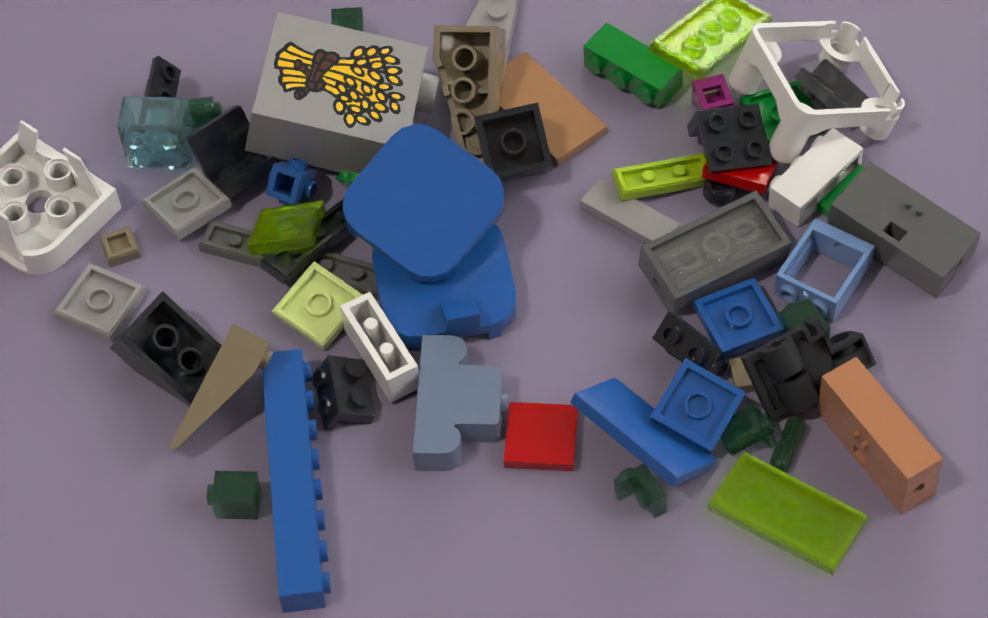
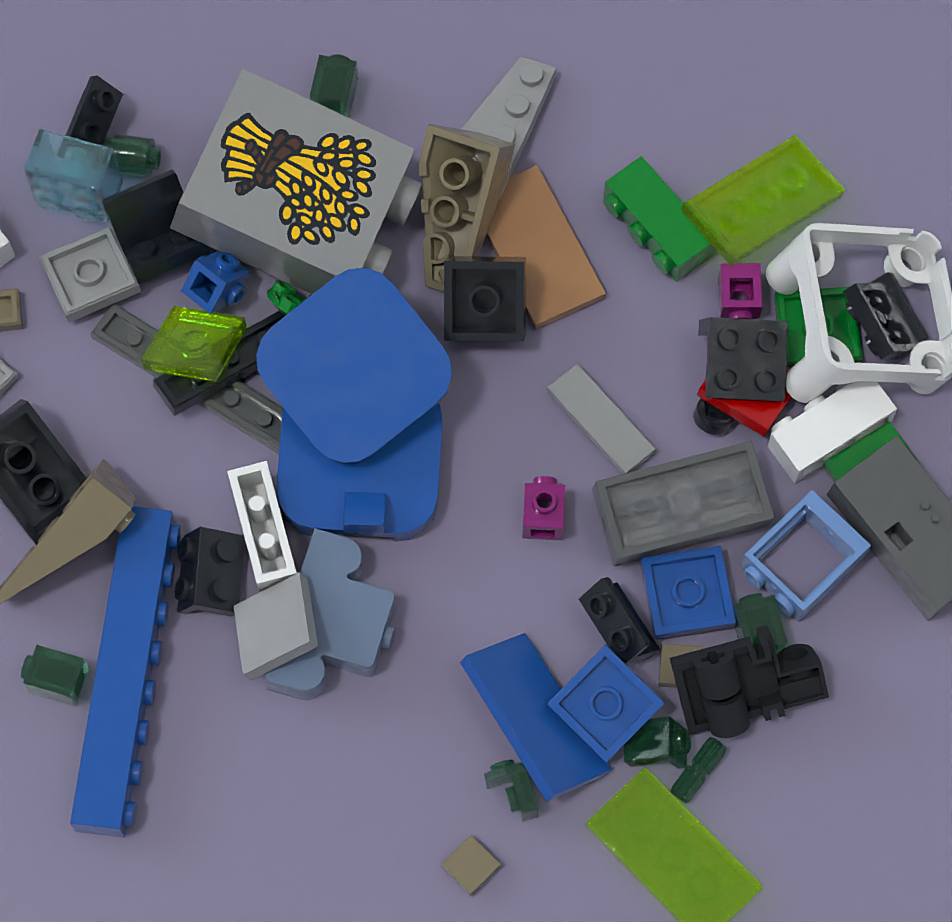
camera: 10 degrees right, 15 degrees up
(315, 304) = (206, 448): yellowish green tile -> none
(410, 410) = (275, 626): none -> light grey tile
(541, 436) = (419, 686): red tile -> none
(604, 286) = (539, 521): none -> magenta brick
(622, 558) = (470, 865): none -> dark tan tile
(659, 177) = (648, 379): lime tile -> none
(879, 435) = (802, 795): nougat brick -> none

